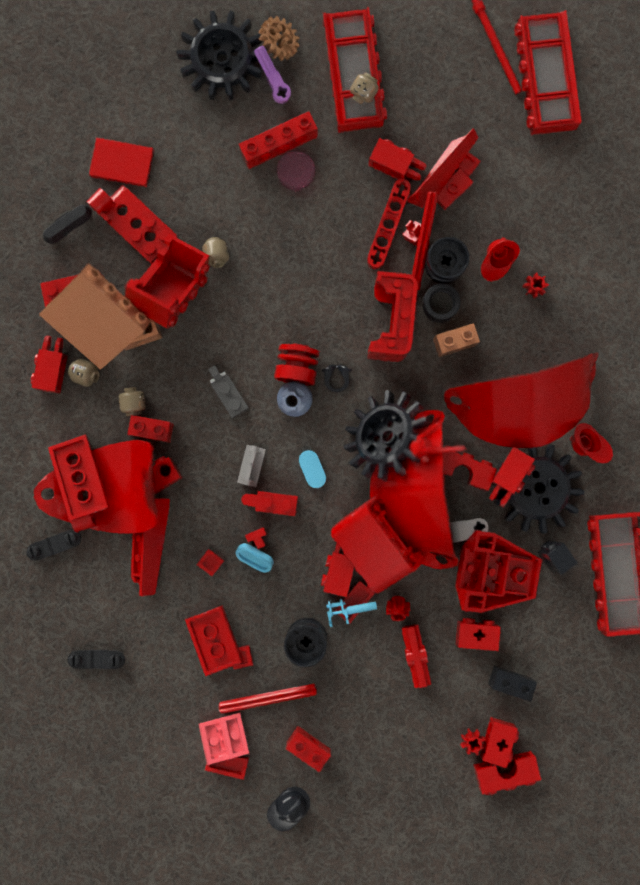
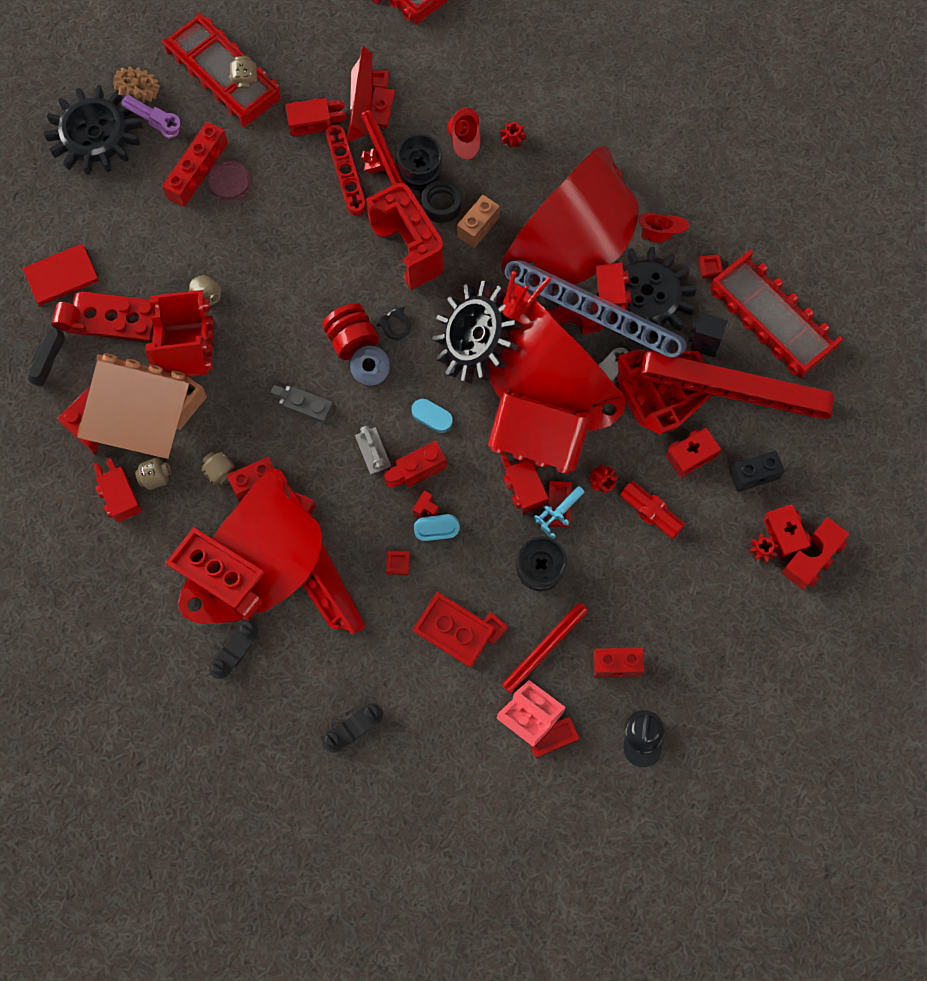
camera: 30 degrees left, 15 degrees down
(485, 492) = (605, 309): none -> sand blue beam
(547, 611) = (737, 385): none -> red beam
(603, 499) = (710, 266): none -> red tile

